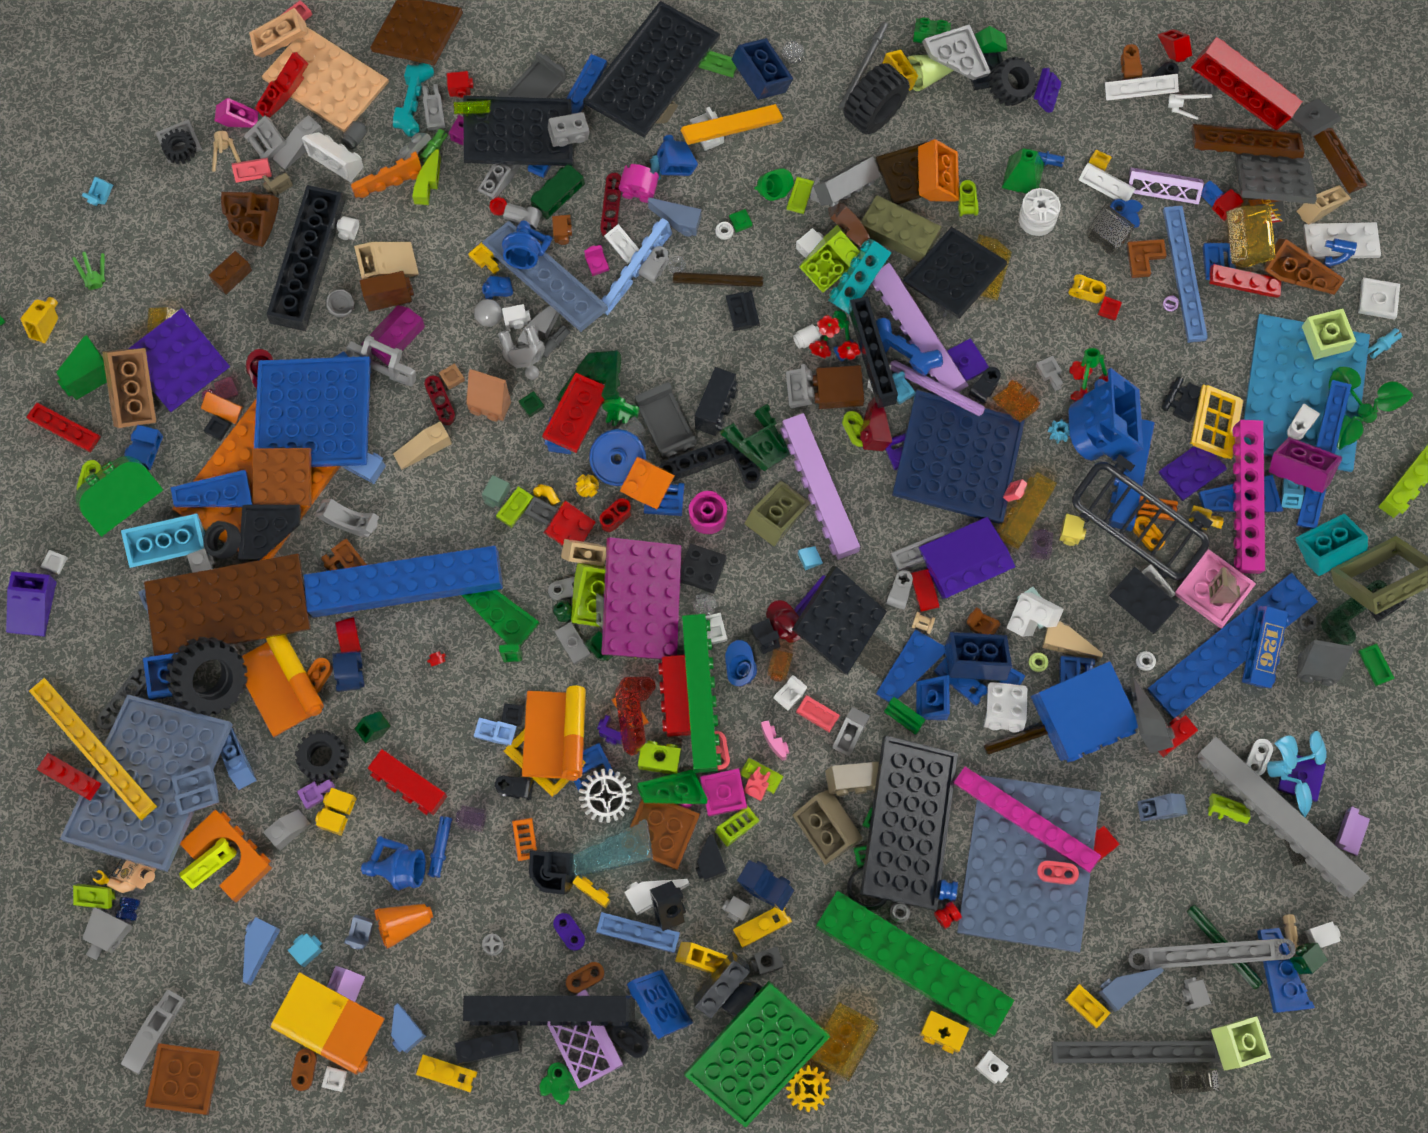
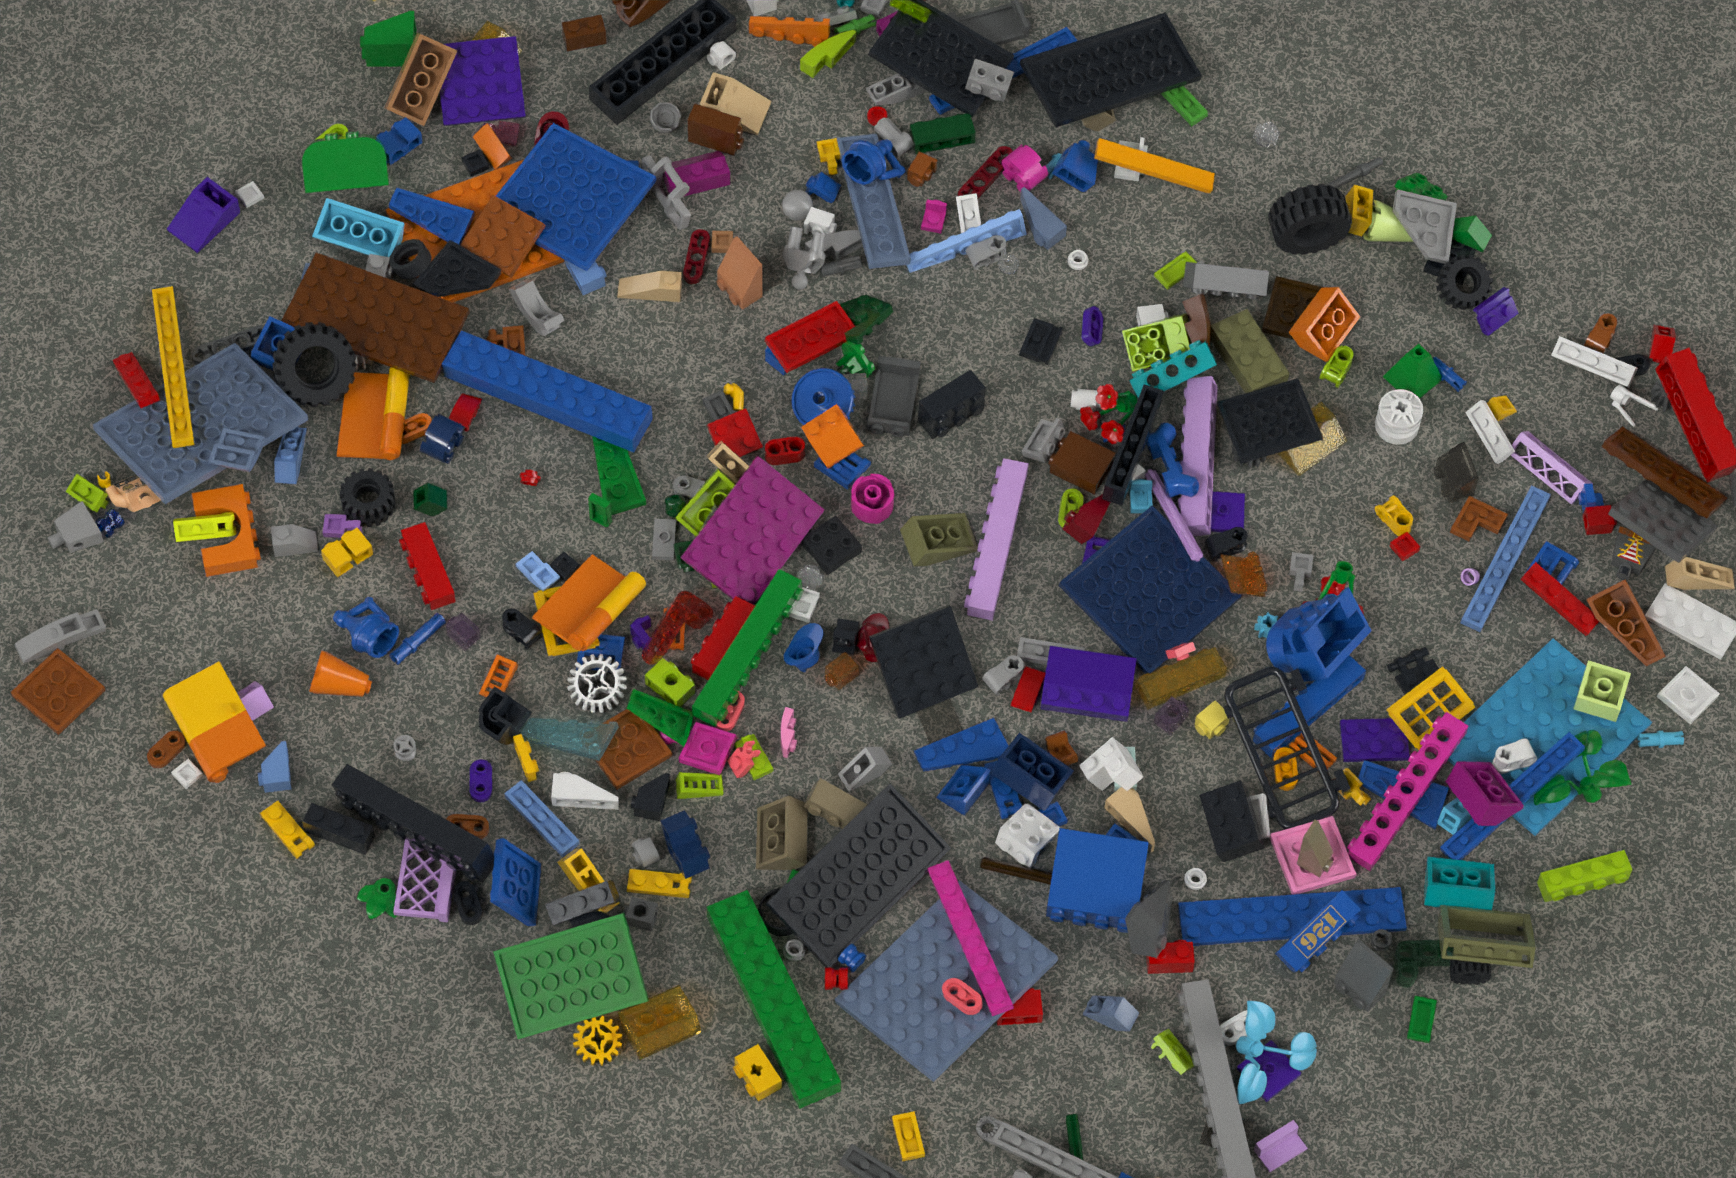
camera: 30 degrees right, 10 degrees down
(63, 427) = (338, 83): red plate -> none
(258, 942) = (200, 620): medium blue slope -> none
(305, 949) = (238, 650): medium azure brick -> none
(360, 932) = (296, 665): sand blue bracket -> none
(495, 492) = (689, 365): sand green brick -> none
(514, 507) = (696, 389): lime plate -> none
(531, 404) = (778, 309): dark green plate -> none
(587, 485) = (777, 409): yellow gear -> none
(667, 905) = (584, 796): black brick -> none
(712, 460) = (913, 456): black beam -> none
(718, 279) = (1038, 300): dark brown axle -> none
(740, 220) = (1100, 260): green plate -> none
(762, 69) = (1222, 132): dark blue brick -> none
(765, 446) = (965, 471): dark green wing -> none
(772, 276) = (1092, 326): none -> dark purple plate
(775, 184) = (1162, 244): green piece -> none
(790, 692) = (833, 701): white bracket -> none
(809, 557) = (940, 595): medium azure slope -> none
(818, 713) = (845, 735): coral plate -> none
(904, 715) = (926, 785): green tile -> none
(916, 624) = (999, 712): tan bush -> none
(984, 1067) = (776, 1121): white brick -> none
(1039, 656) = (1090, 811): yellowish green plate -> none
(1124, 988) = (955, 1142): sand blue slope -> none
(1129, 210) = (1490, 472): blue plate -> none
(1250, 235) = (1594, 557): clear yellow slope -> none
(1342, 246) = (1681, 621): blue plant -> none

